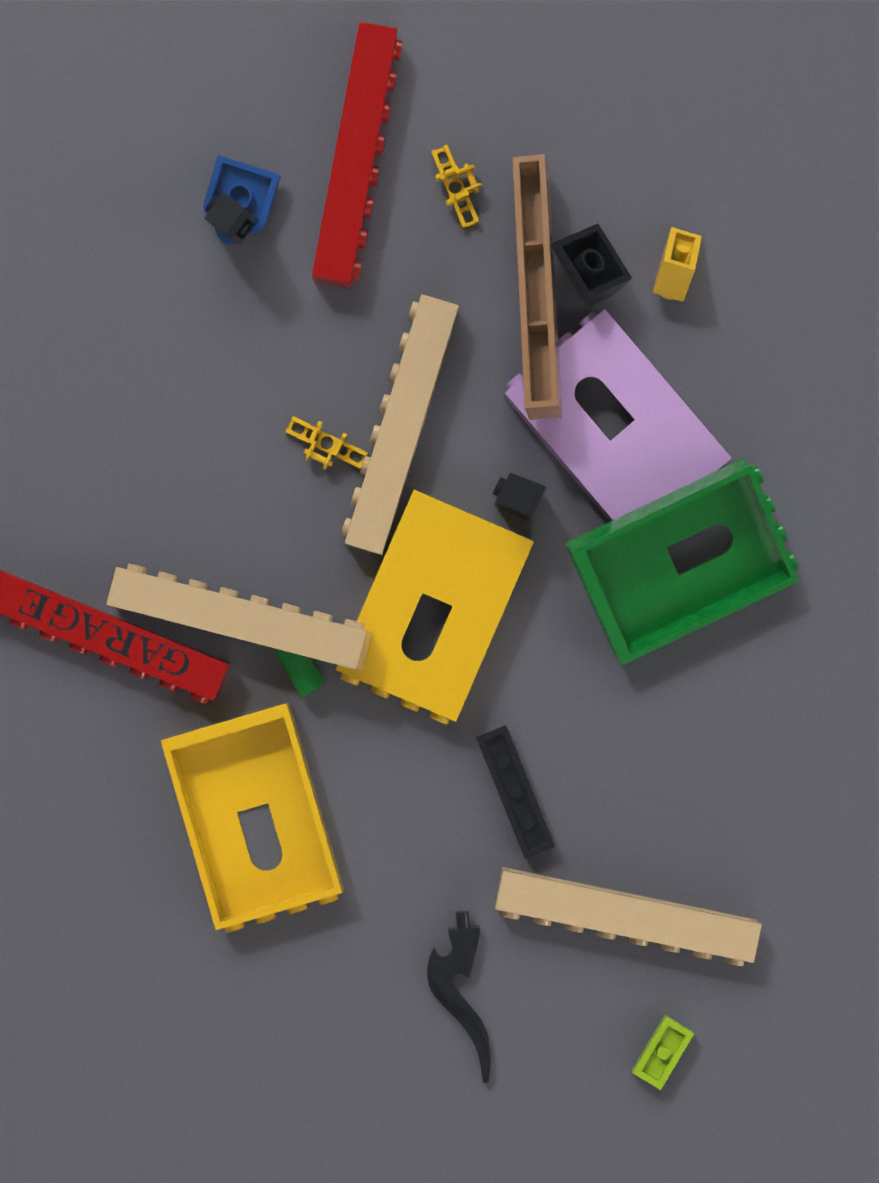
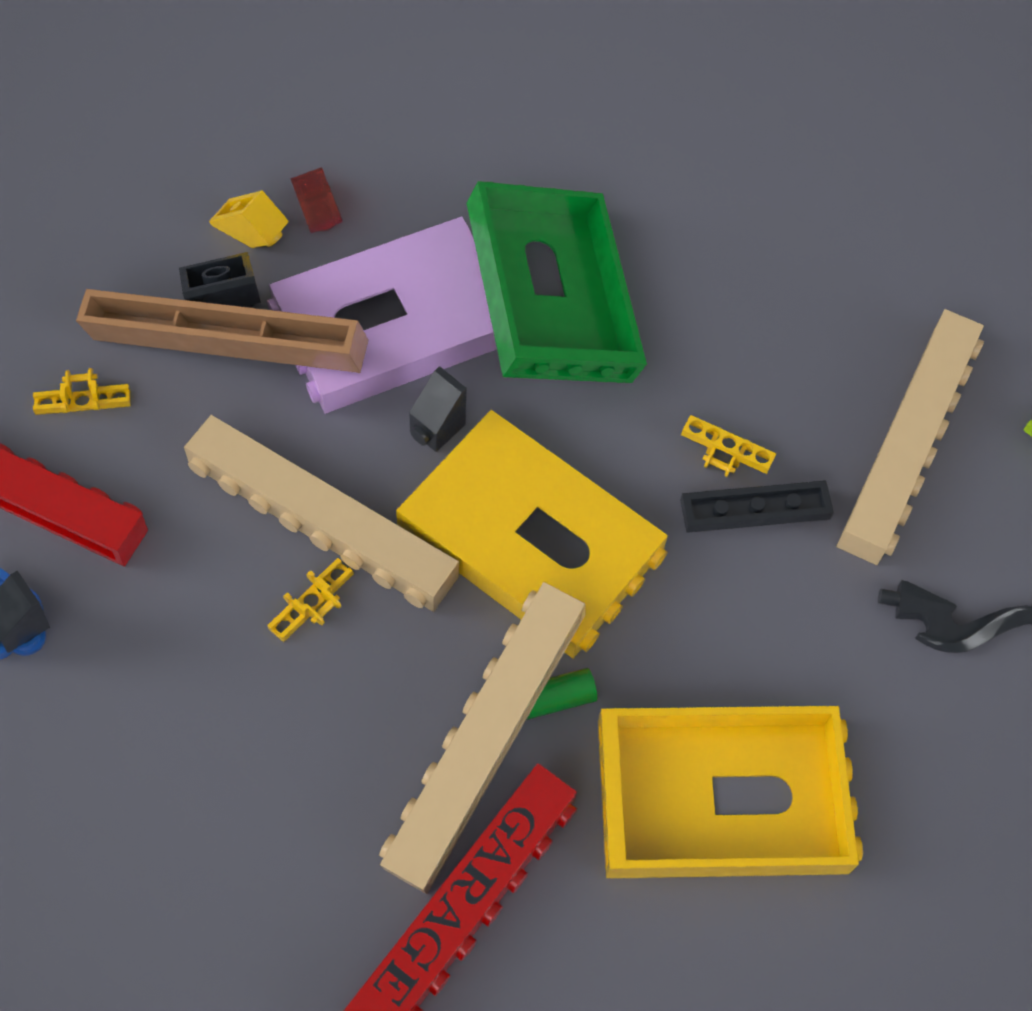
camera: 85 degrees left, 25 degrees down
(561, 763) = (716, 443): none -> yellow piece
(719, 317) = (316, 200): none -> clear red slope

